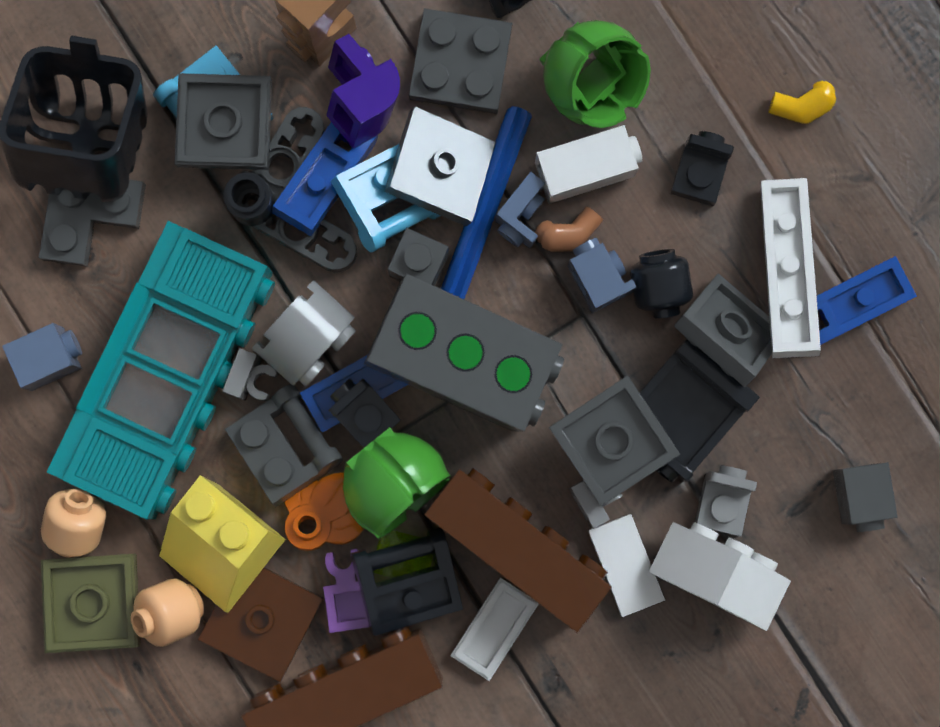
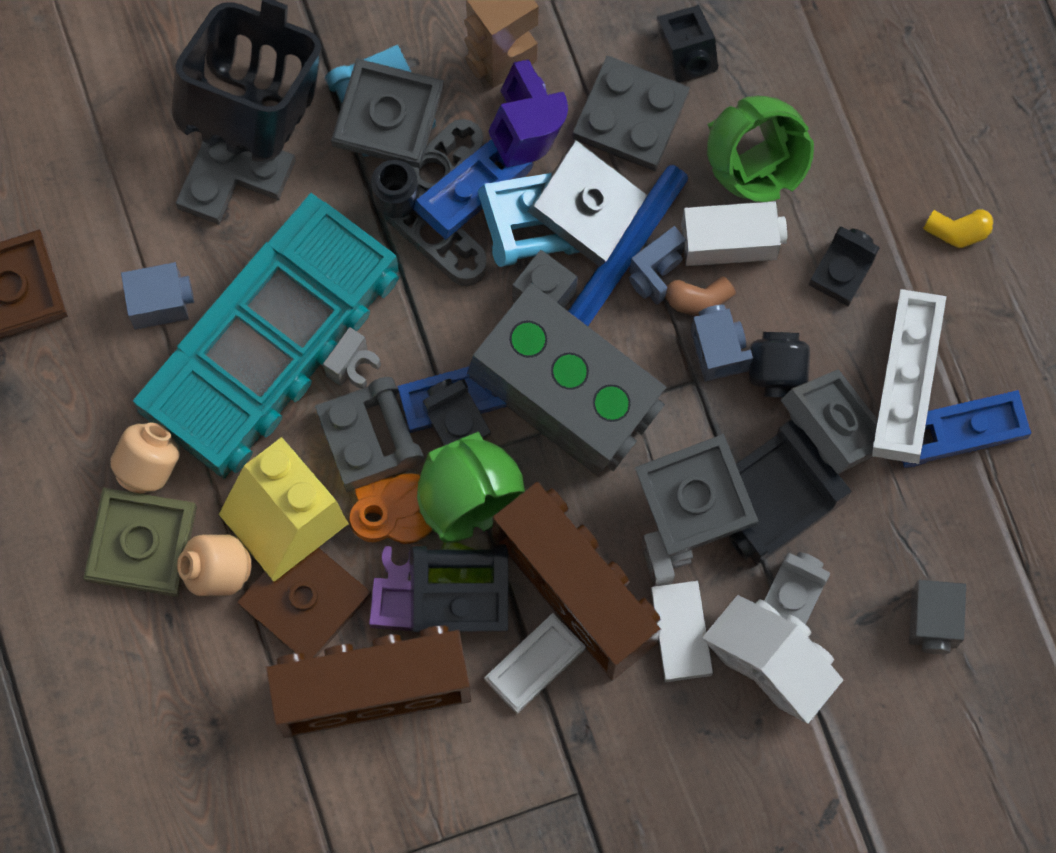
camera: 15 degrees right, 10 degrees down
(305, 334) = (417, 329): light grey brick -> none

